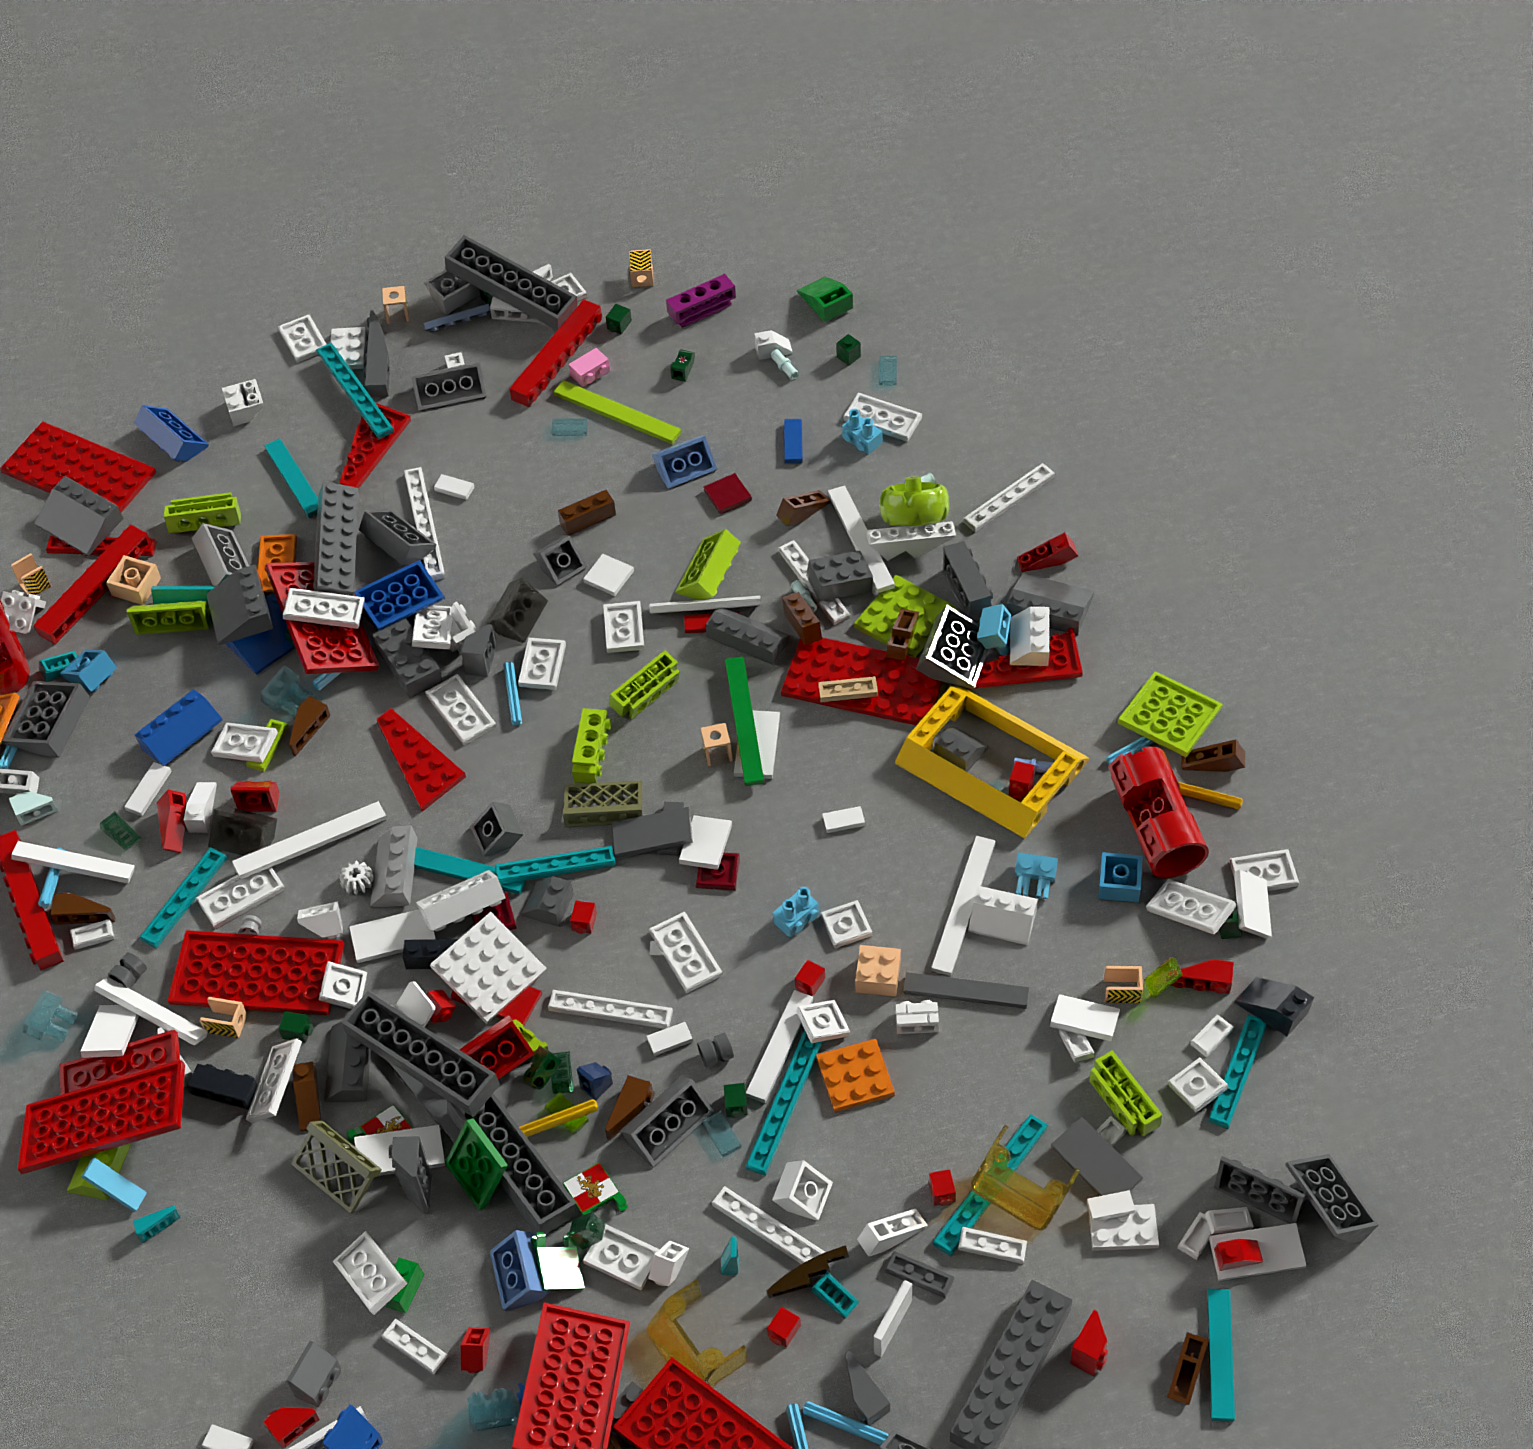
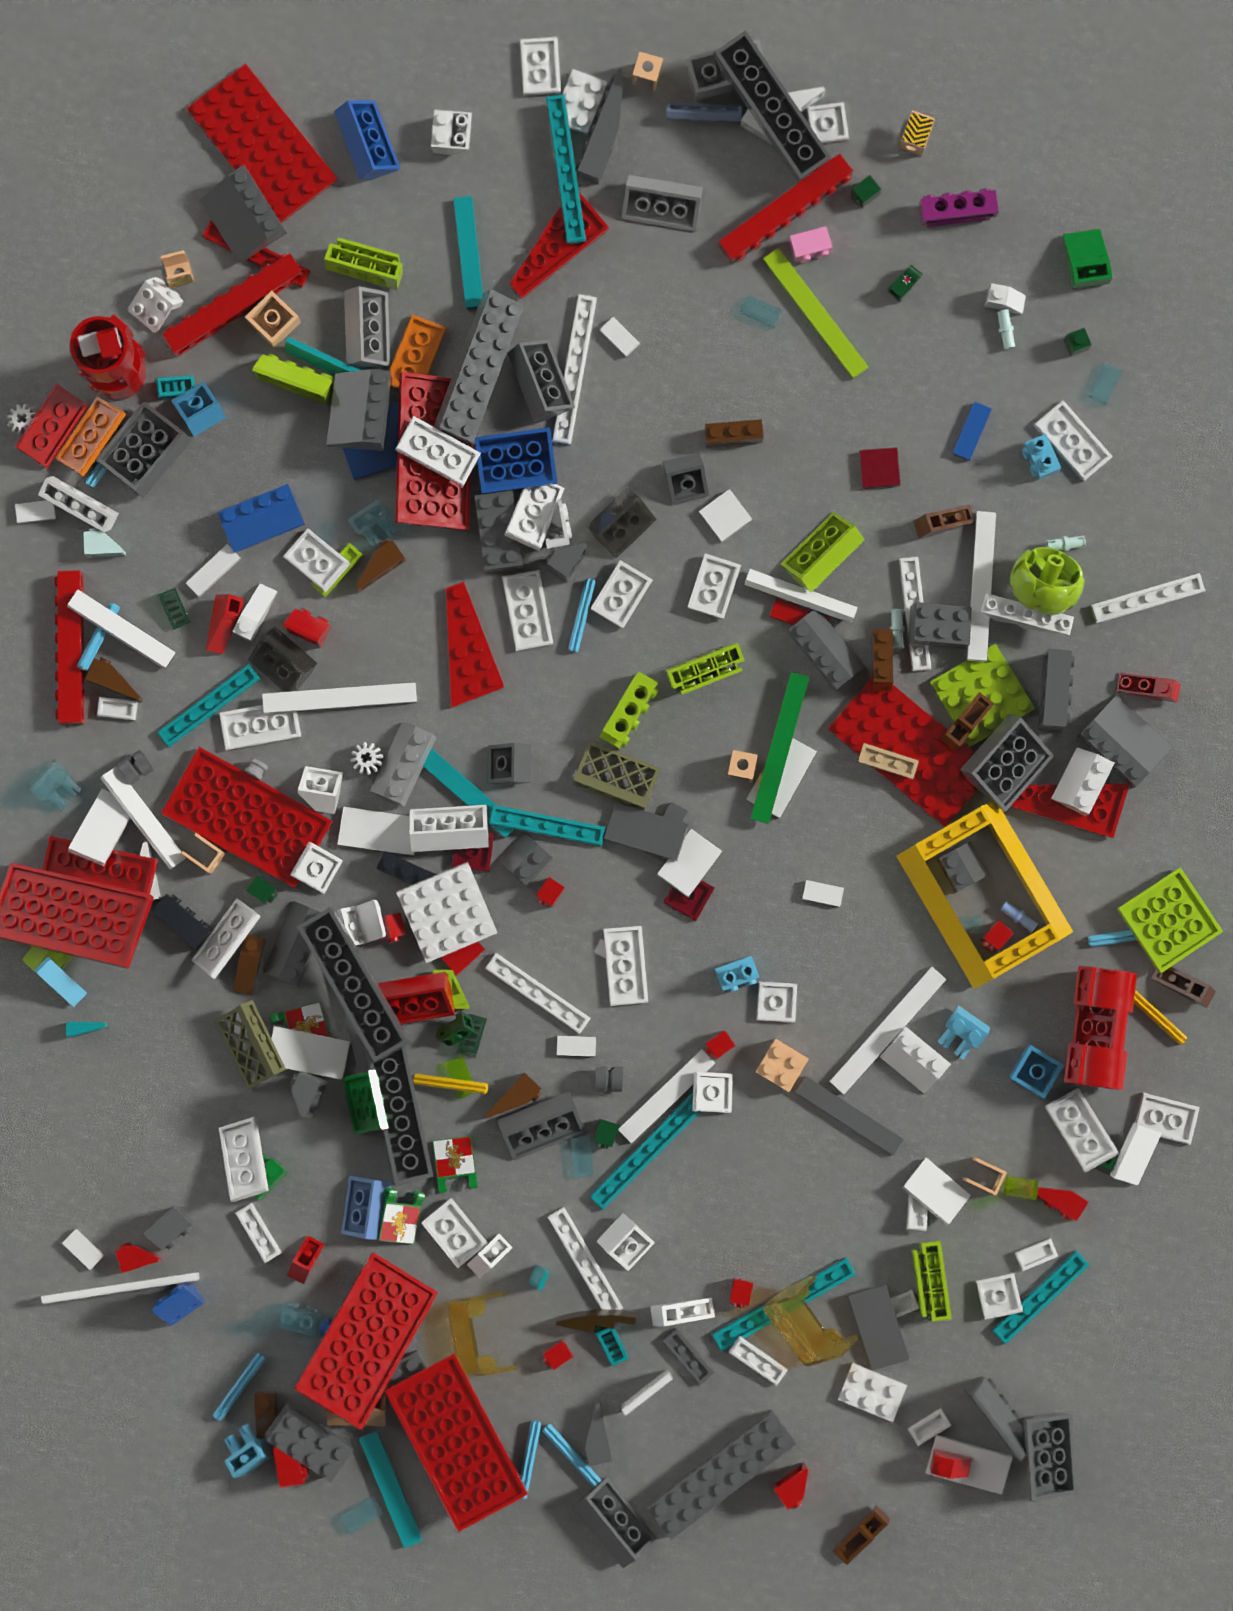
camera: 20 degrees right, 30 degrees up
(454, 360) = (680, 173): white plate -> none
(587, 1230) = (433, 1200): clear green brick -> none
(594, 1079) = (497, 1060): dark blue slope -> none
(684, 461) = (854, 410): medium blue slope -> none
(855, 1075) = (717, 1153): orange plate -> none
(917, 1017) = (794, 1125): white brick -> none
(995, 628) = (1053, 758): medium azure brick -> none
(1110, 1206) = (869, 1375): white tile -> none
(1221, 1355) = (894, 1534): teal tile -> none
(1229, 1220) = (960, 1428): white tile -> none
(1276, 1003) = (1103, 1253): black slope -> none

